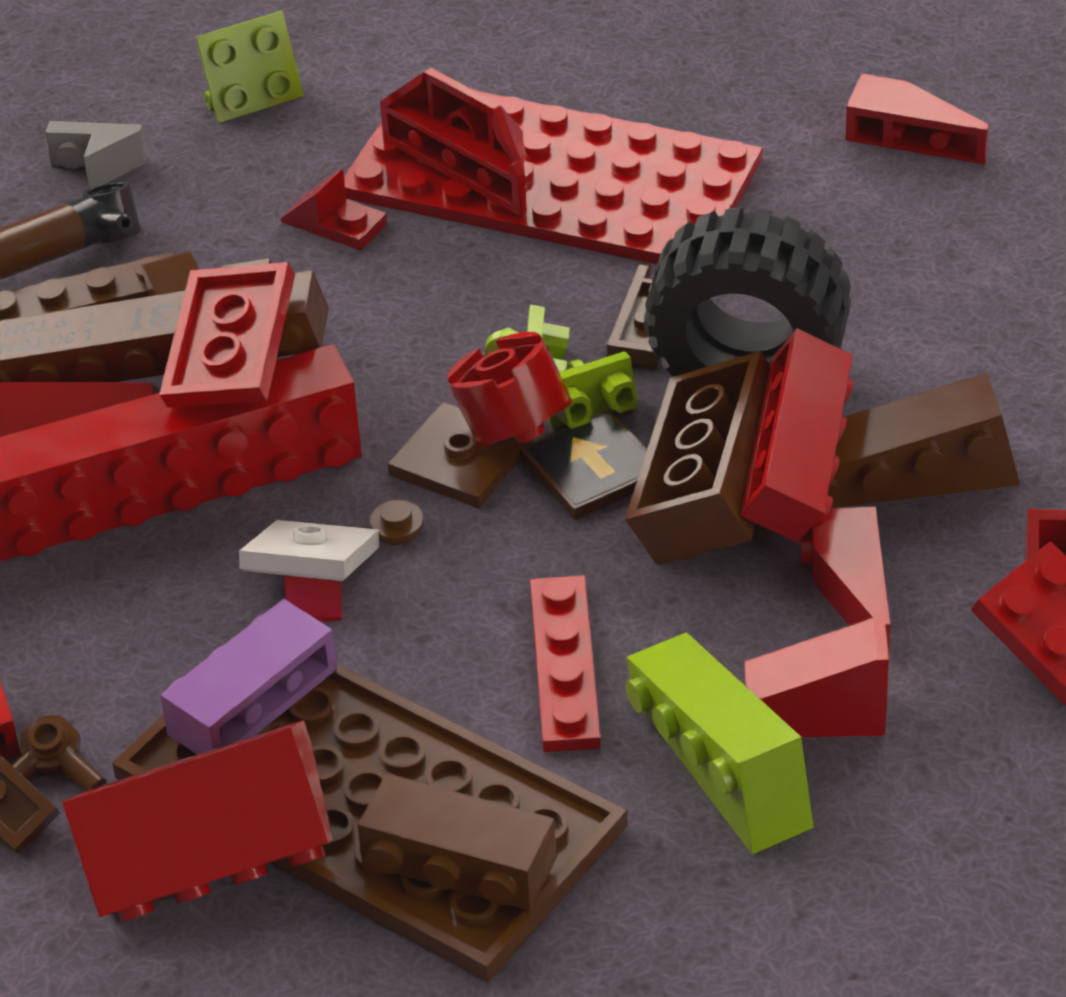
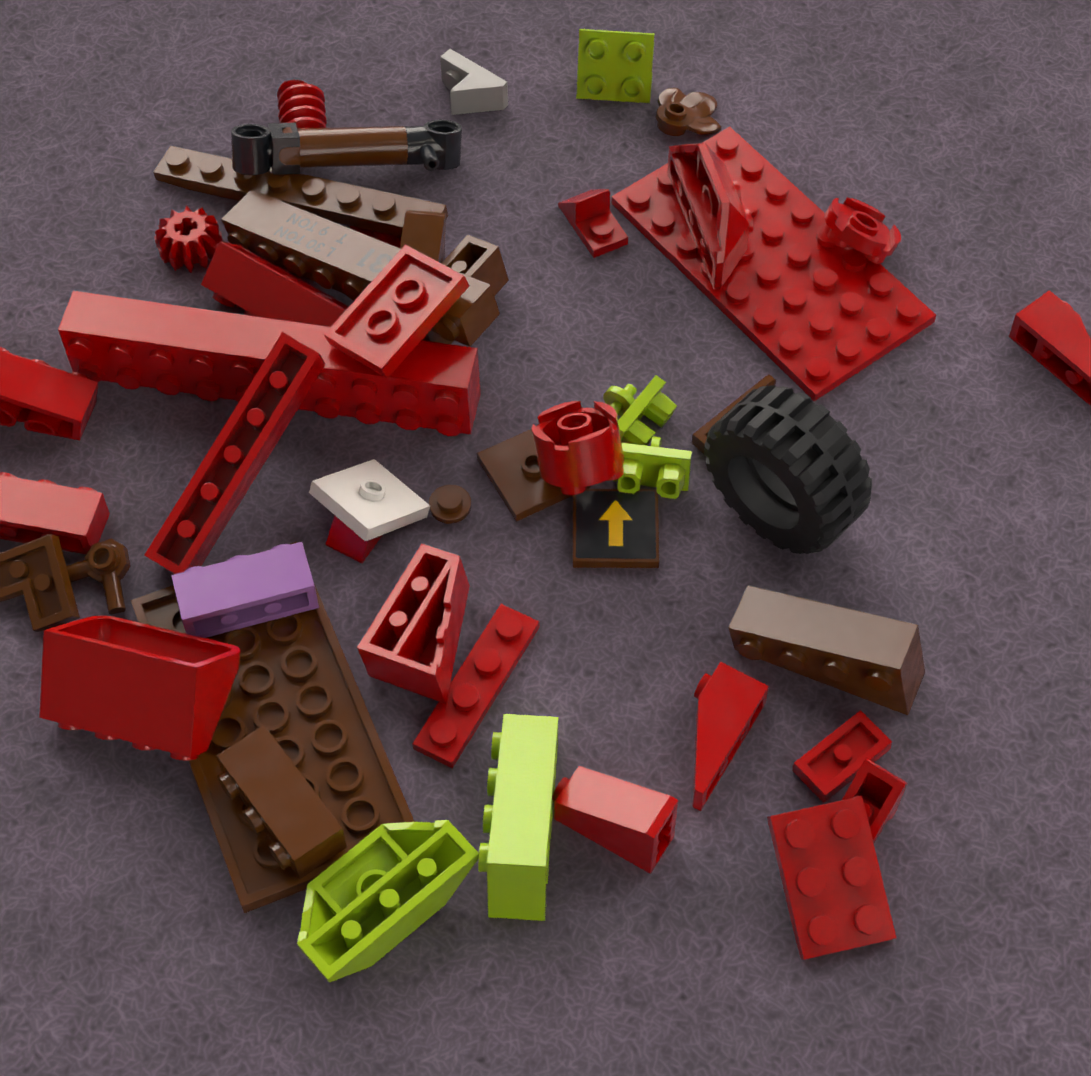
camera: 30 degrees right, 15 degrees up
(143, 559) = (236, 456): none -> red brick
(352, 86) = (690, 110): none -> reddish brown plate
(470, 631) = (419, 626): none -> red wedge
(620, 101) = (861, 228): none -> red plate
(636, 863) = (381, 894): none -> lime wedge
(700, 461) = (681, 577): reddish brown brick -> none
(798, 436) = (741, 602): red brick -> none
(989, 541) = (840, 755): none -> red plate

